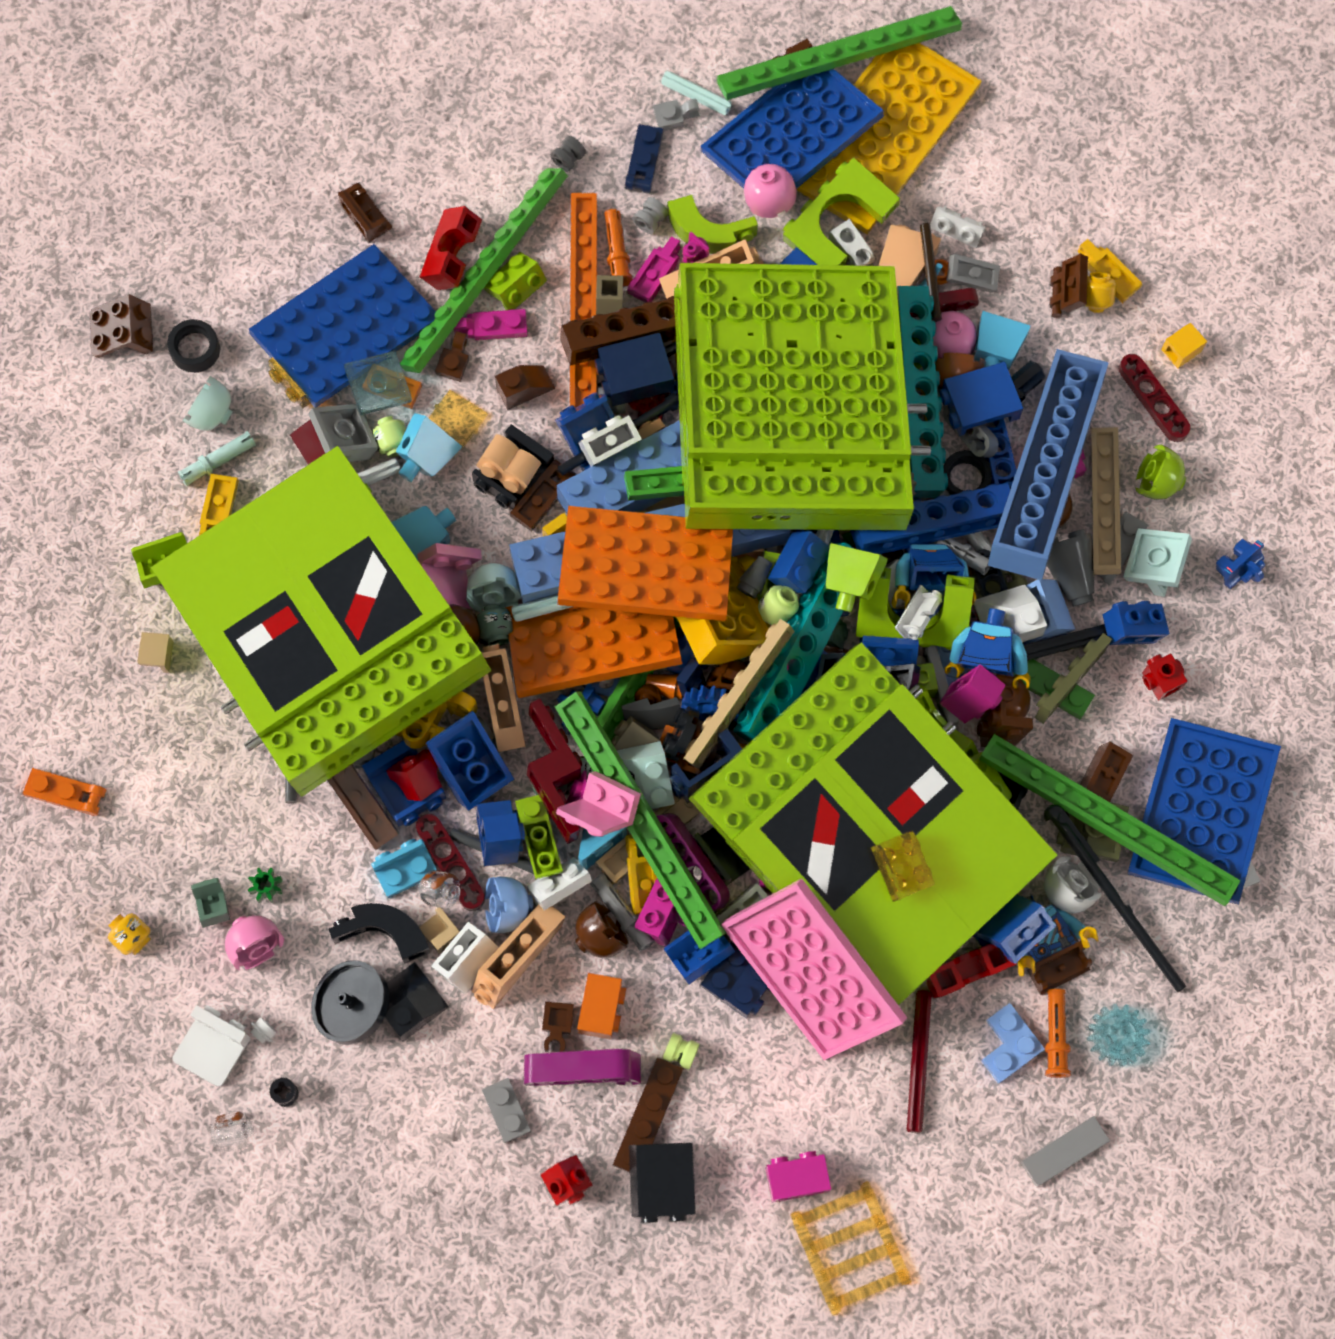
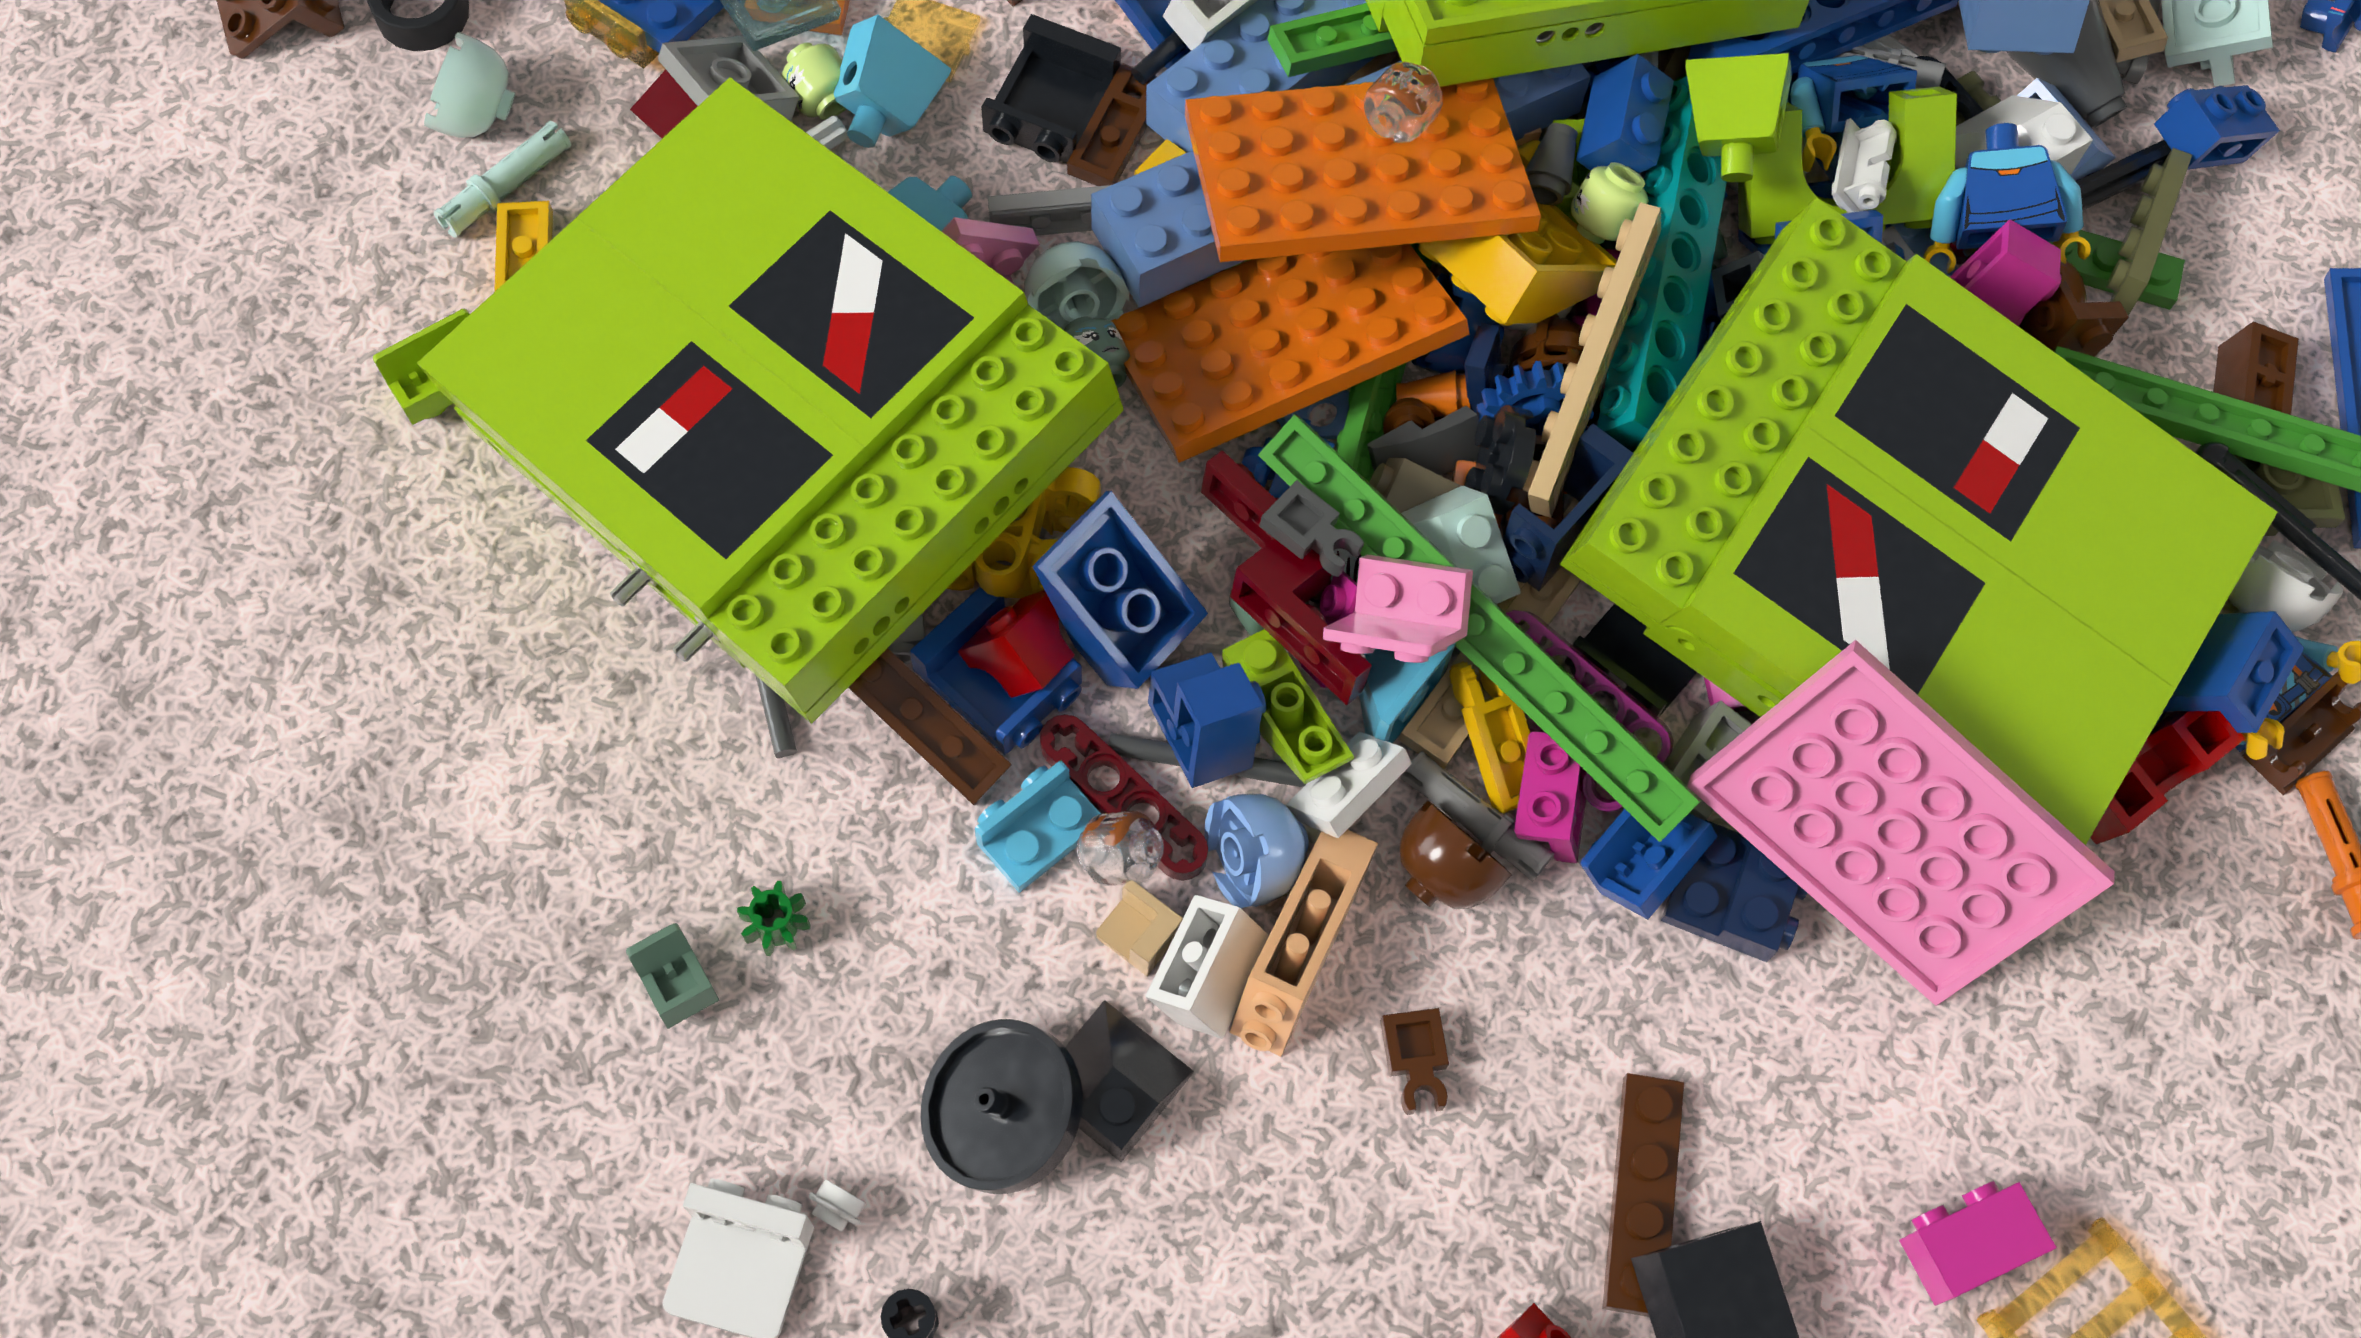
camera: 15 degrees left, 5 degrees down
(63, 791) = (329, 831): orange plate -> none
(129, 933) = (518, 1075): yellow head -> none
(155, 650) = (459, 528): tan panel -> none
(252, 941) = (774, 1030): bright pink cylinder -> none
(386, 920) = (1033, 932): black arch -> none
(493, 538) = (1045, 210): none -> light grey tile
(502, 700) = (1146, 481): light nougat slope -> none
(506, 1110) = (1364, 1249): light grey plate -> none
(508, 464) = (1044, 79): light nougat brick -> none
(537, 608) = (1187, 293): light aqua axle -> none
(567, 749) = (1306, 524): none -> dark grey plate
(582, 1067) = (1492, 1127): magenta beam -> none
(600, 1006) = (1494, 999): orange brick -> none
(674, 537) = (1403, 99): none -> clear head
(681, 1051) = (1671, 1050): yellowish green wheel -> none
(903, 865) = (2024, 582): clear yellow bracket -> none
(919, 1061) = (2124, 996): dark red axle -> none
(1018, 1044) = (2280, 892): light blue plate -> none
(1164, 675) = (2294, 201): red brick -> none

